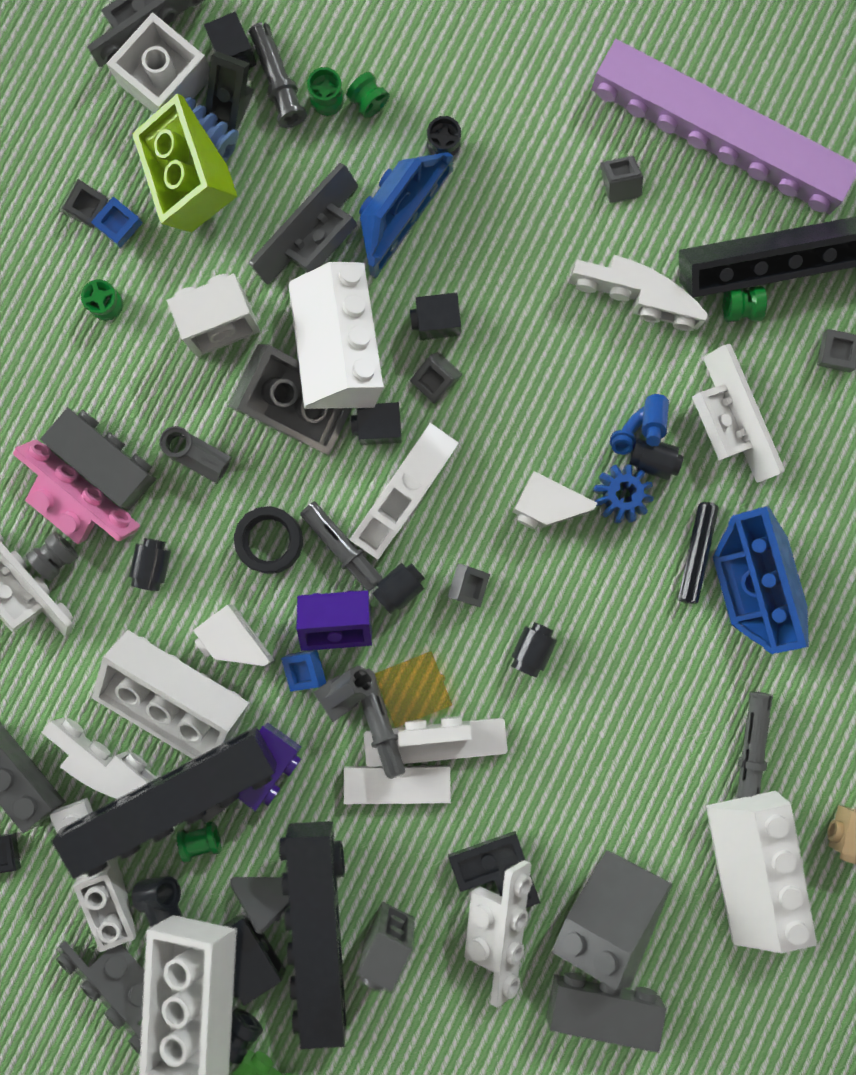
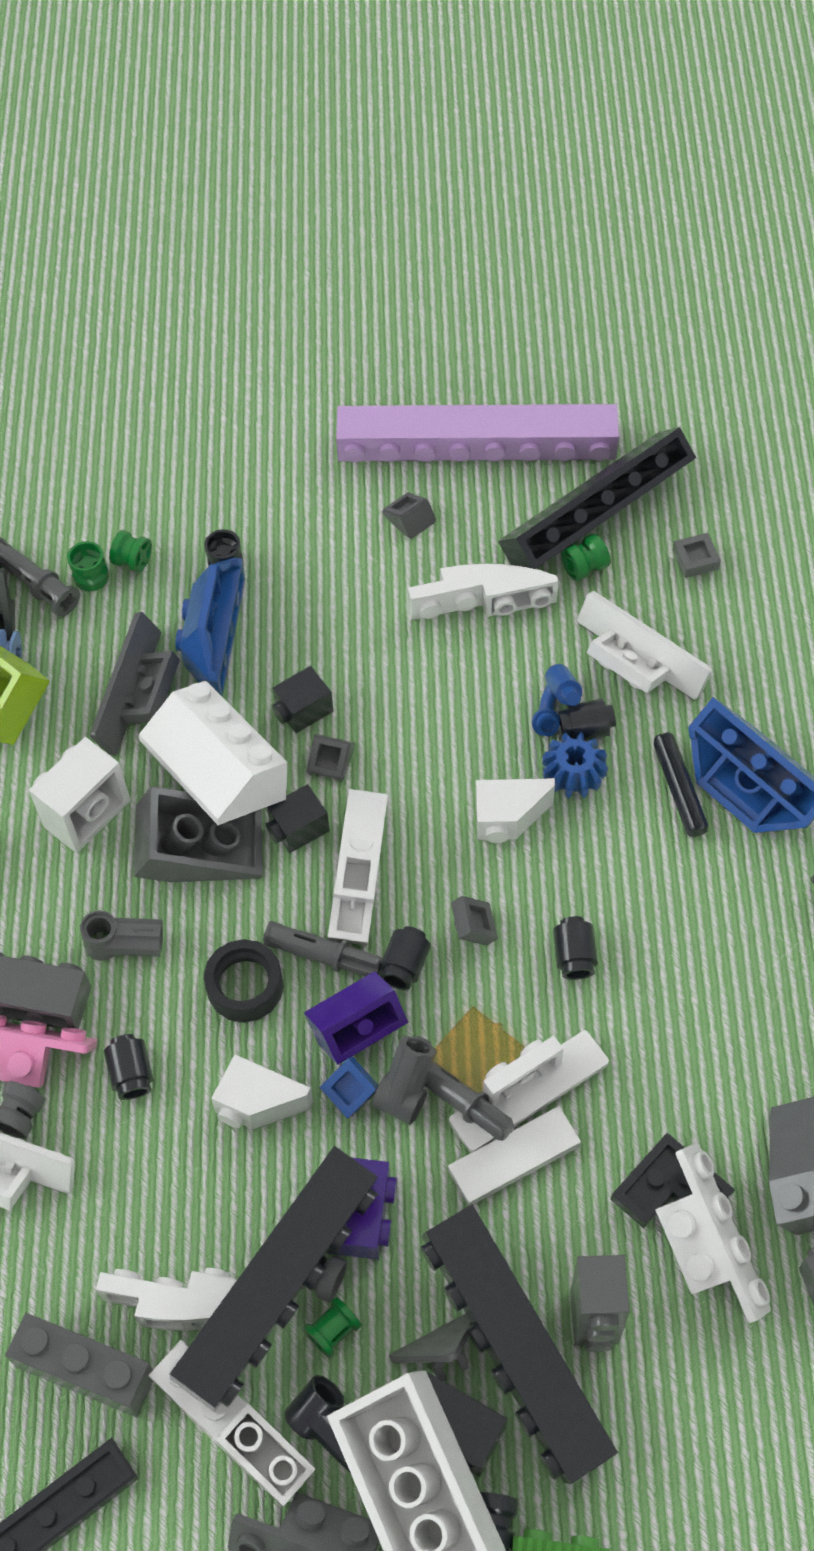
camera: 25 degrees left, 25 degrees down
(167, 696) = (212, 1190): white slope -> none

